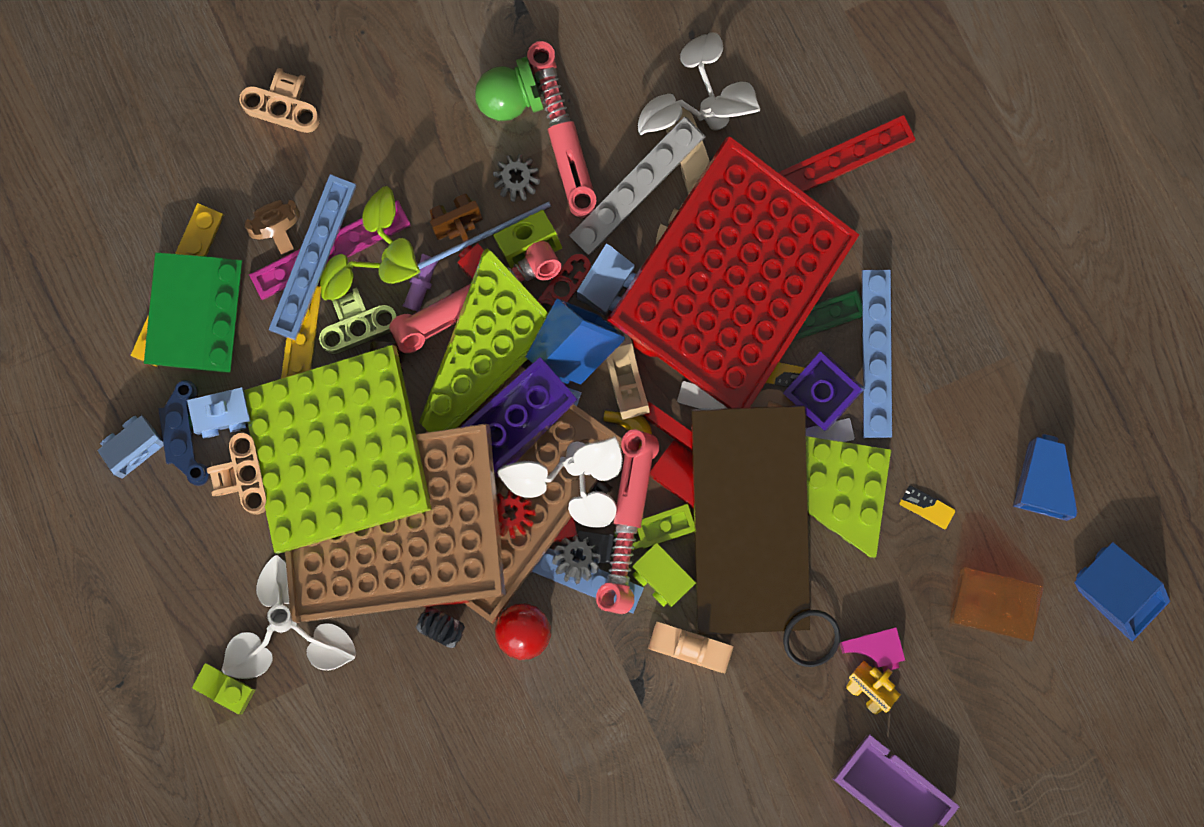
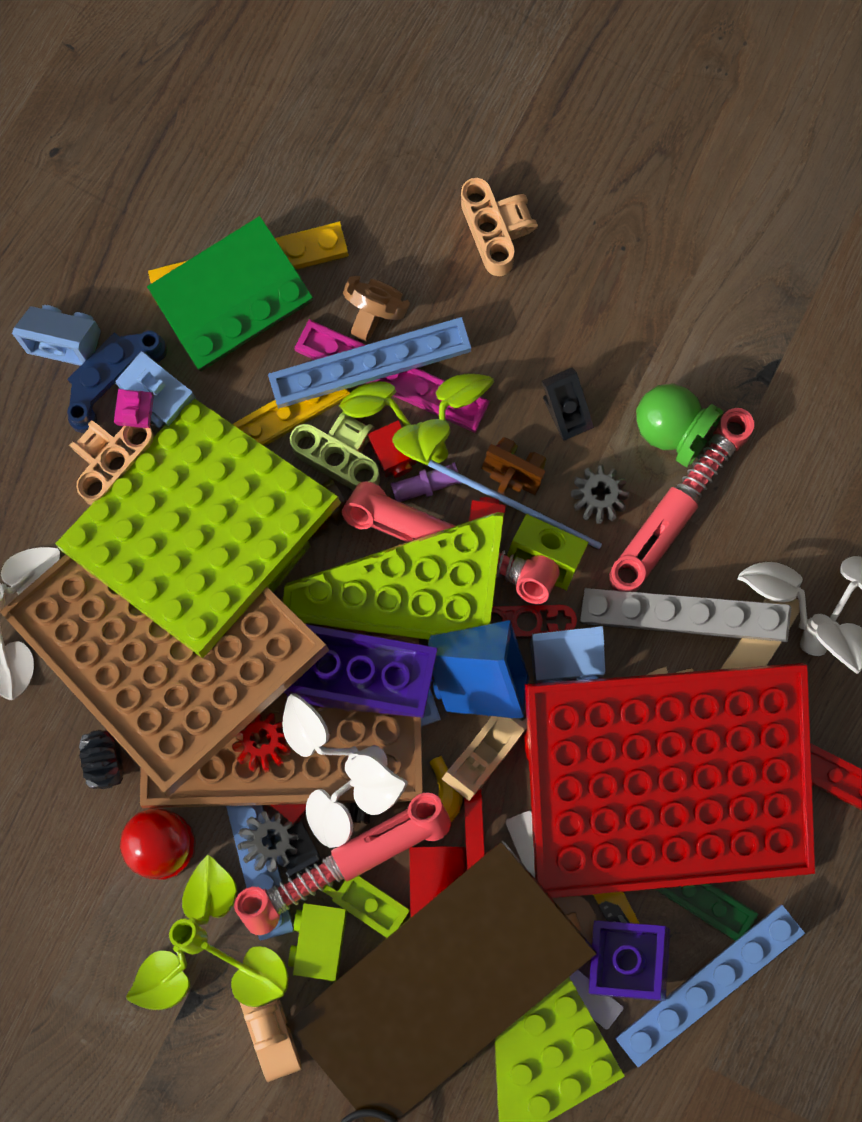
camera: 60 degrees right, 5 degrees down
(224, 433) = (134, 408): none -> dark pink tile
(379, 291) = (388, 456): none -> red brick
(441, 152) = (567, 404): none -> black slope
(579, 622) = (160, 977): none -> lime plant

